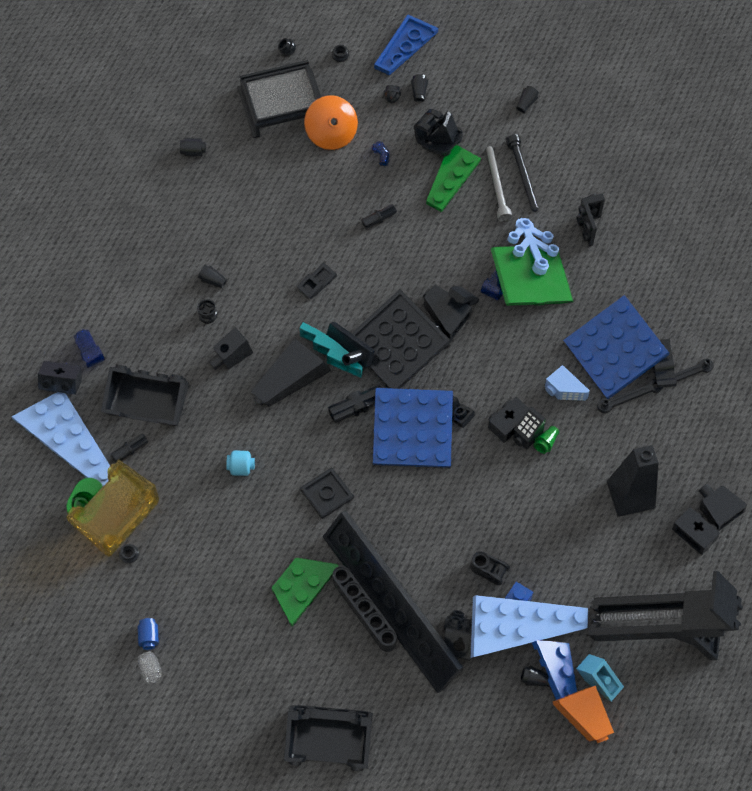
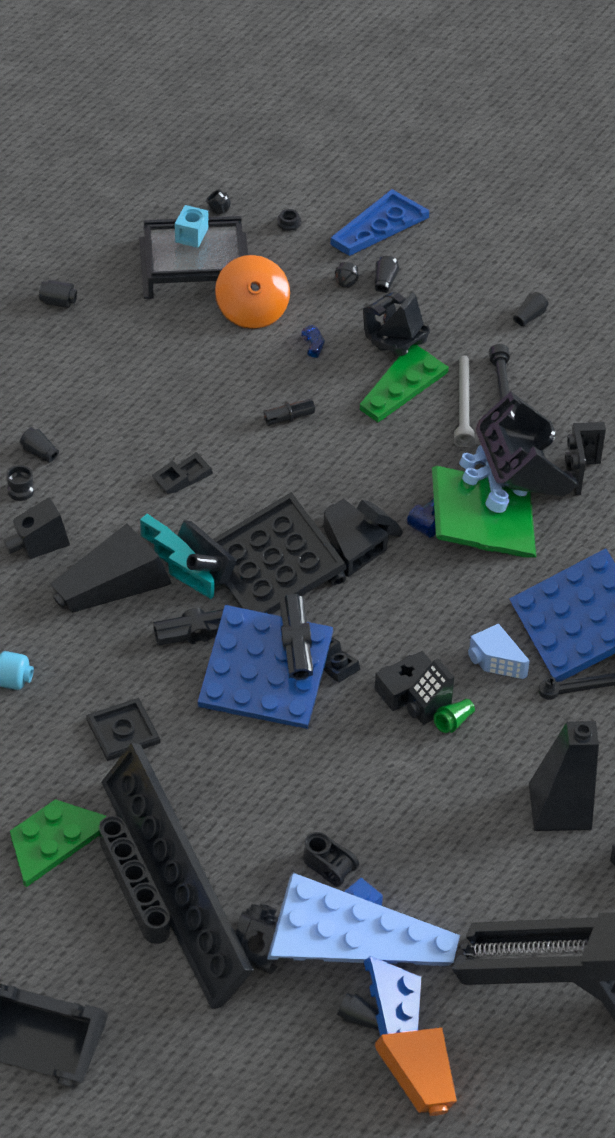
camera: 10 degrees right, 15 degrees down
(274, 83) = (191, 226): none -> medium azure brick
(431, 406) = (296, 637): none -> black piece
(540, 218) = (514, 445): none -> black windscreen
(598, 672) = (458, 1026): medium azure slope -> none

